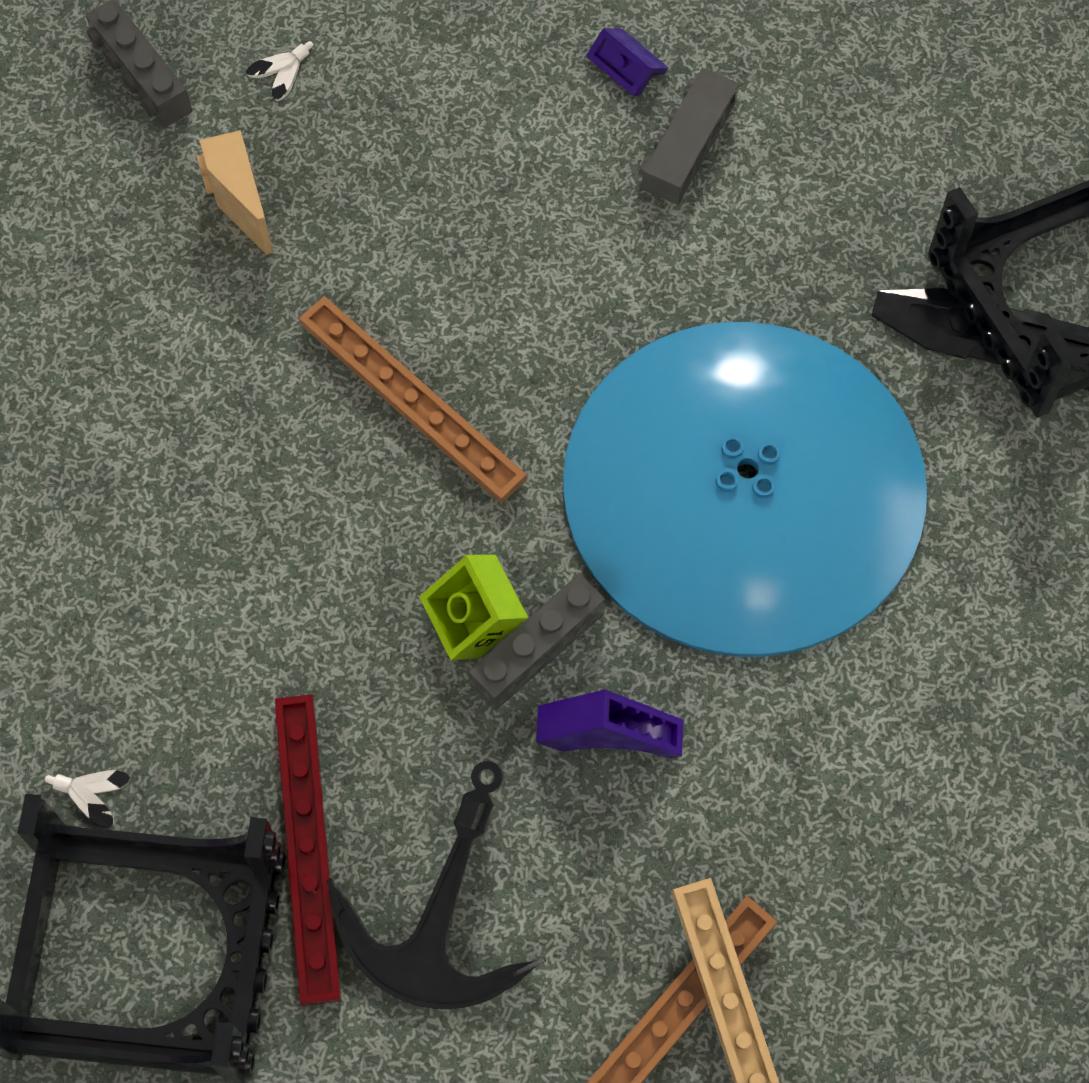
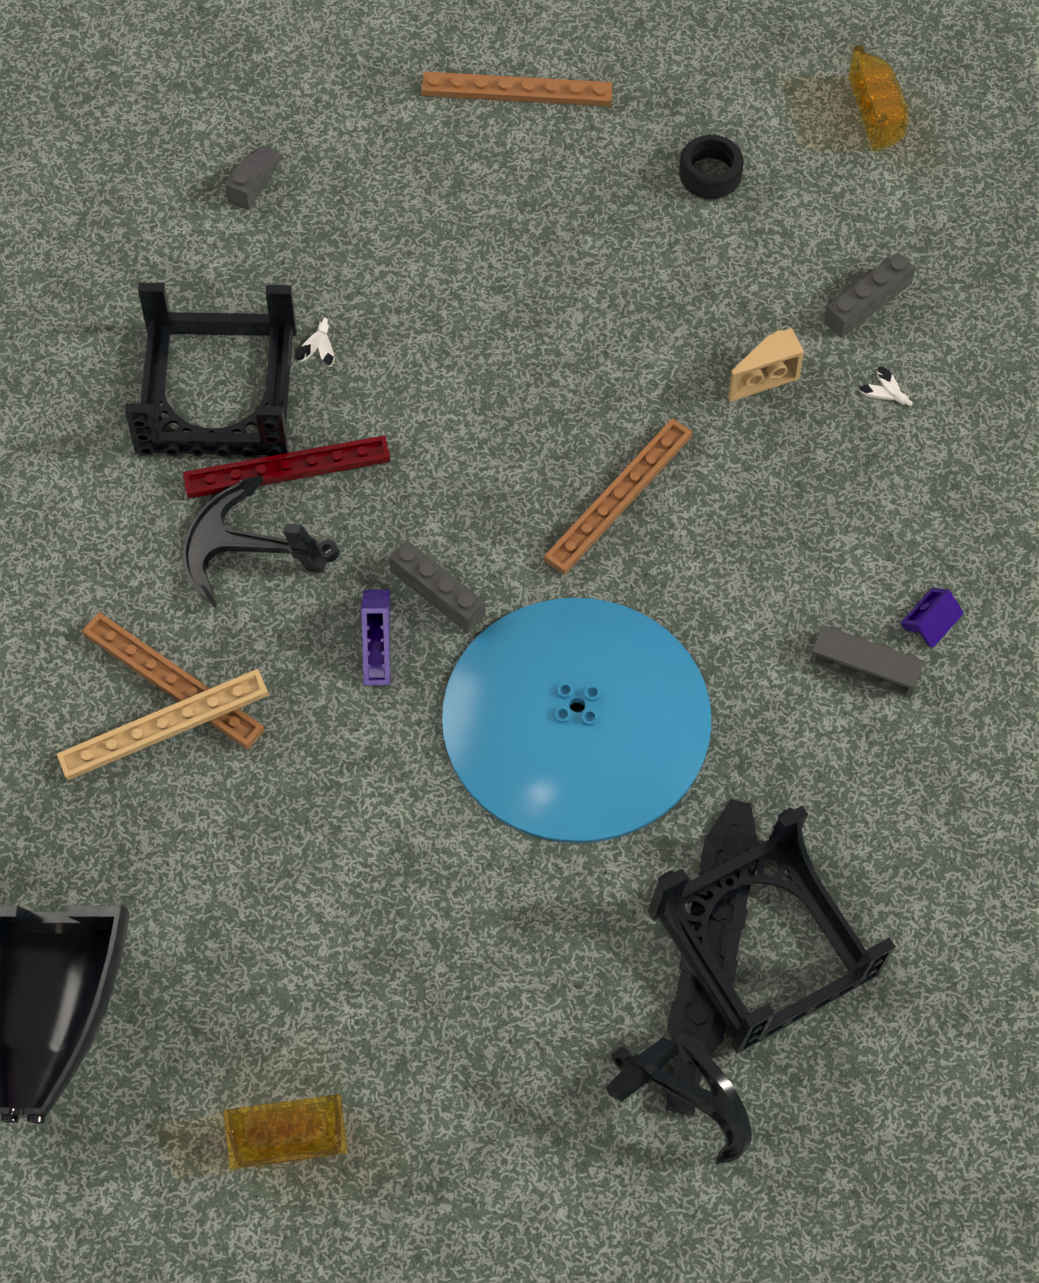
camera: 85 degrees right, 5 degrees down
(473, 607) = (455, 540): lime brick -> none

